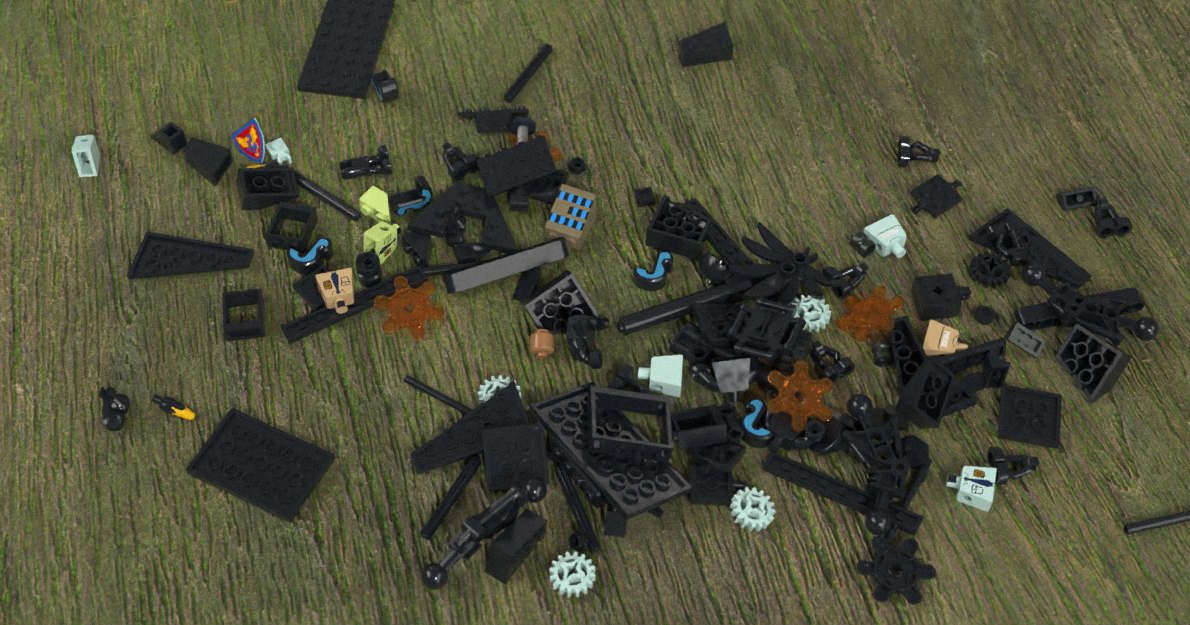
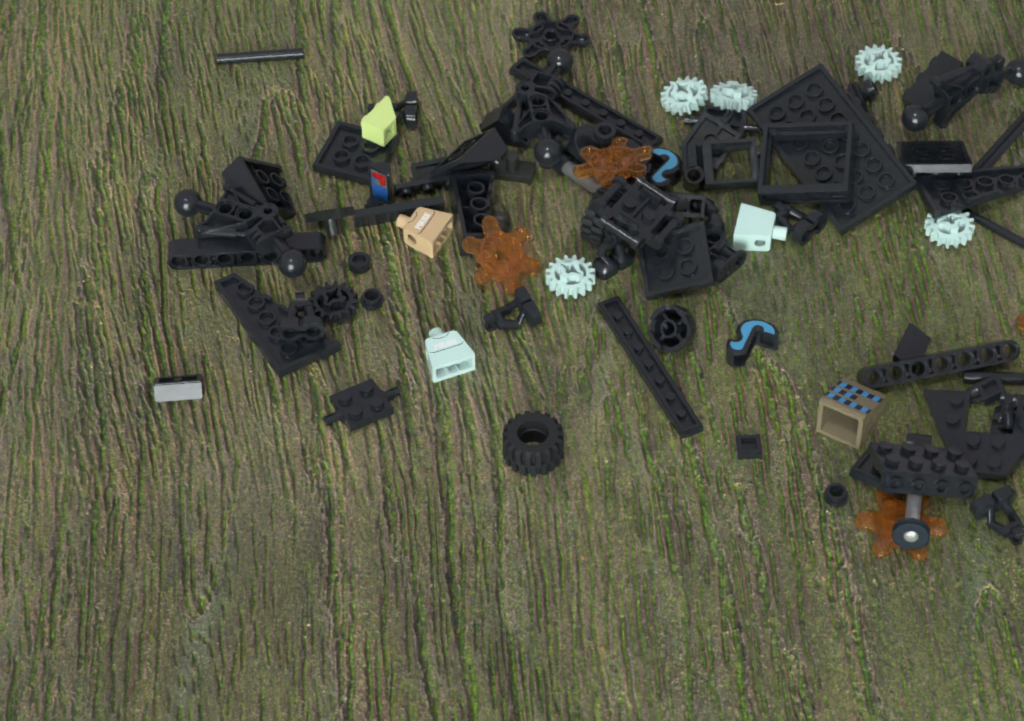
camera: 170 degrees left, 5 degrees down
(494, 120) = (951, 576): black bracket -> none
(528, 73) = (896, 650): black axle -> none
(542, 343) = (897, 273): medium nougat head -> none
(557, 302) = (875, 311): black wedge -> none
(581, 339) = (850, 266): black torso -> none
(677, 229) = (715, 379): black wedge -> none
(706, 46) = (622, 652): black wedge -> none
(714, 509) = (733, 96): none -> light aqua gear
(729, 291) = (722, 298): black brick -> none
(789, 270) = (581, 328): black plant -> none
(803, 161) = (533, 428): none -> black tyre
(838, 370) = (564, 212): black piece -> none
(862, 244) = (481, 347): pearl dark grey wheel -> none
(904, 149) = (383, 461): black piece -> none
(938, 296) = (409, 276): black hinge -> none
(964, 277) = (371, 299): none -> black plate
(974, 486) = (443, 96): light aqua torso -> none
(1017, 431) = (380, 123): none -> yellowish green slope
(1115, 225) = (146, 337): black piece -> none

